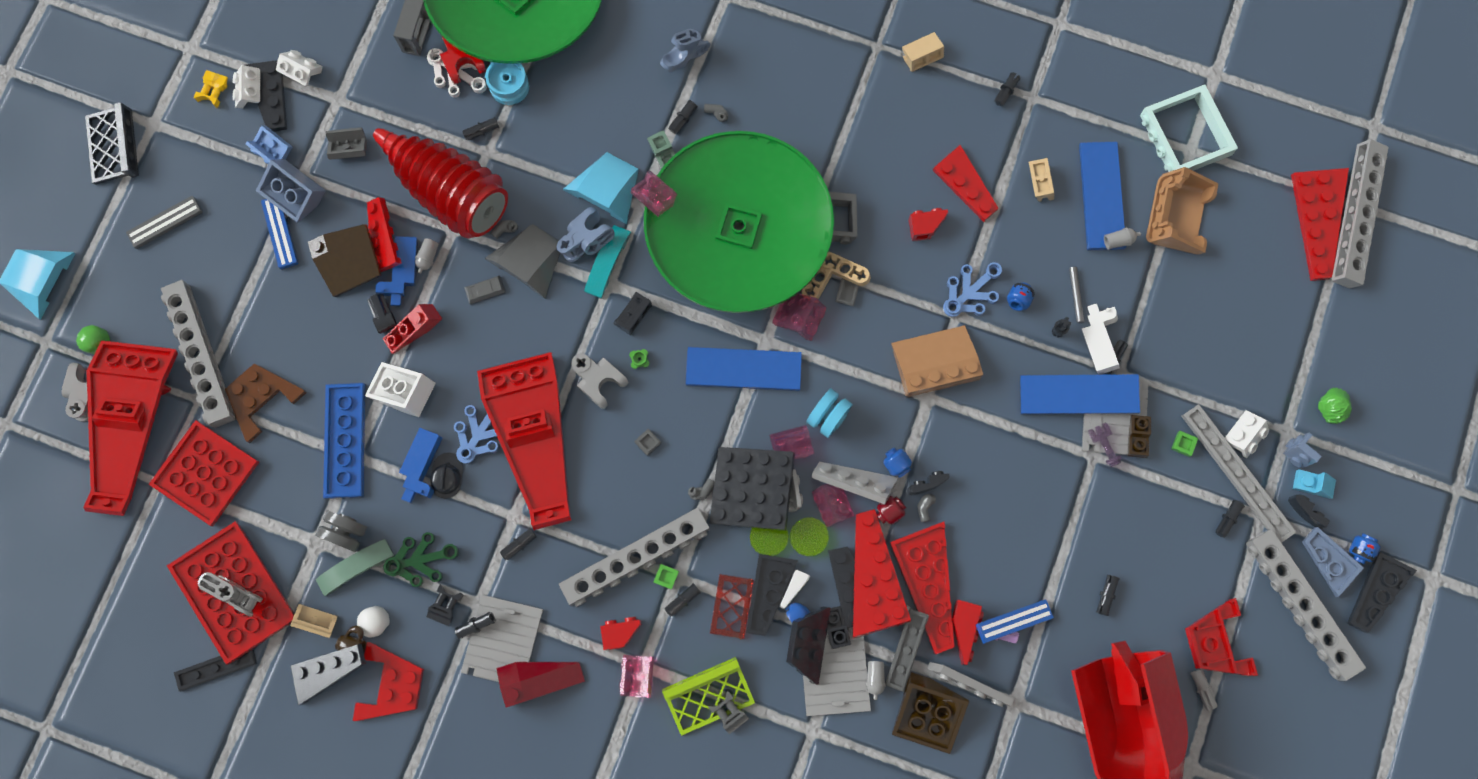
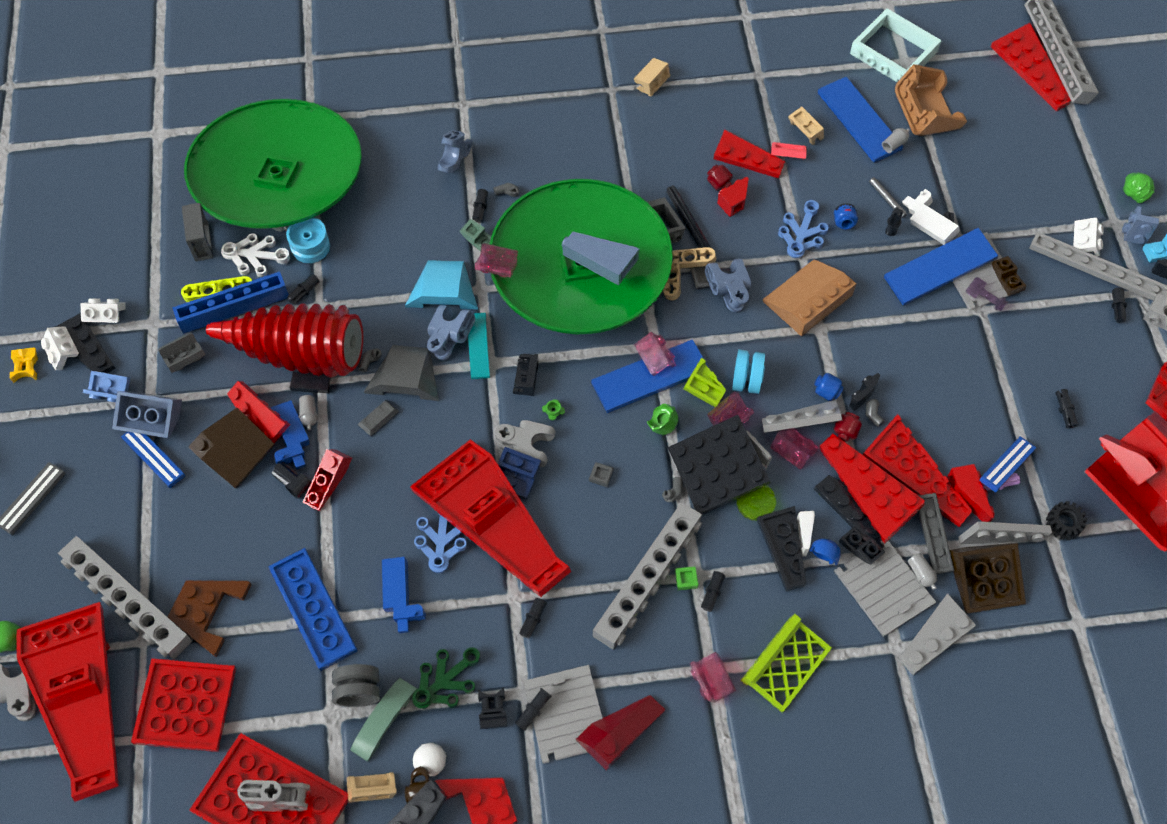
camera: 30 degrees left, 15 degrees down
(400, 389) = (344, 535): white slope -> none
(407, 92) = (217, 286): none -> neon yellow beam
(409, 113) = (230, 302): none -> blue brick
(435, 225) = (309, 382): none -> black tile
(446, 475) = (429, 592): black piece -> none
(455, 59) = (251, 238): red piece -> none
(575, 405) = (519, 470): none -> dark blue slope
(618, 635) = (672, 650): red slope -> none
(716, 613) = (749, 588): clear red window -> none
(729, 419) = (663, 419): none -> bright green hair
(736, 717) = (824, 667): dark grey piece -> none
(753, 235) = (601, 256): none -> sand blue slope
(757, 351) = (654, 353): none -> clear pink bracket
(786, 403) = (705, 384): none -> lime wing
(800, 314) = (672, 309): clear pink bracket -> none
(808, 643) = (850, 568): black wing -> none
(809, 537) = (791, 484): clear neon green tile -> none
(855, 739) = (939, 632): none -> light grey wing
(867, 316) = (731, 286): none -> sand blue piece
(869, 230) = (687, 217): none -> black axle
(923, 196) = (719, 177): none -> dark red head
(1007, 89) = (736, 75): black axle -> none
(1009, 197) = (788, 150): none -> coral tile
(1026, 708) = (1071, 511): none -> black tyre
(1184, 443) = (1046, 266): bright green plate -> none

